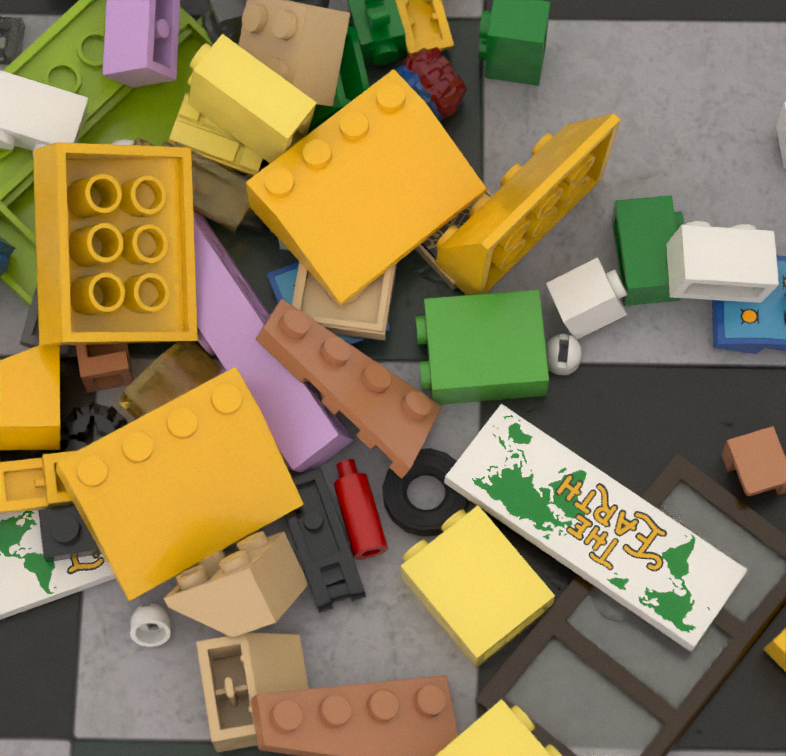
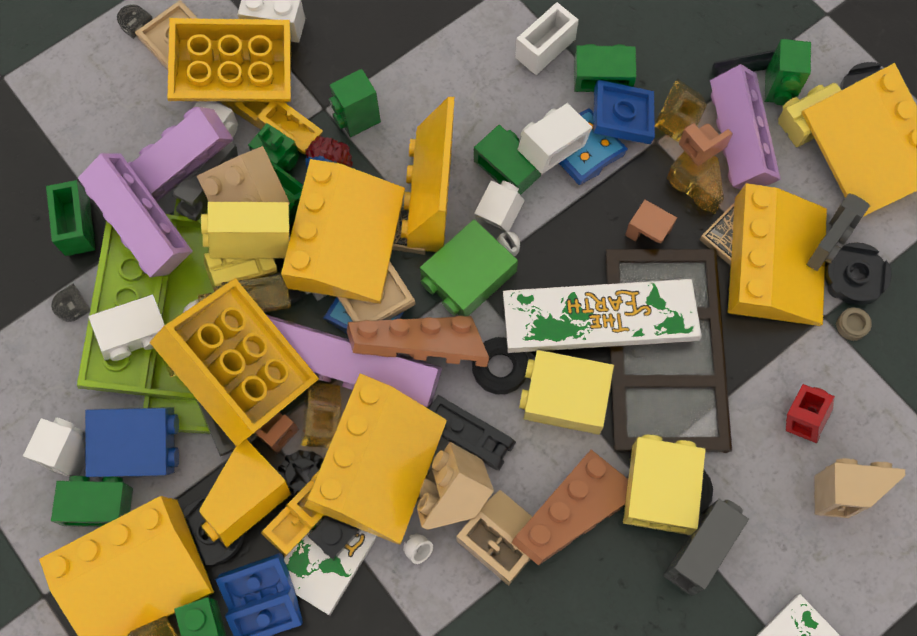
camera: 40 degrees left, 0 degrees up
(359, 511) = (475, 401): red cylinder -> none

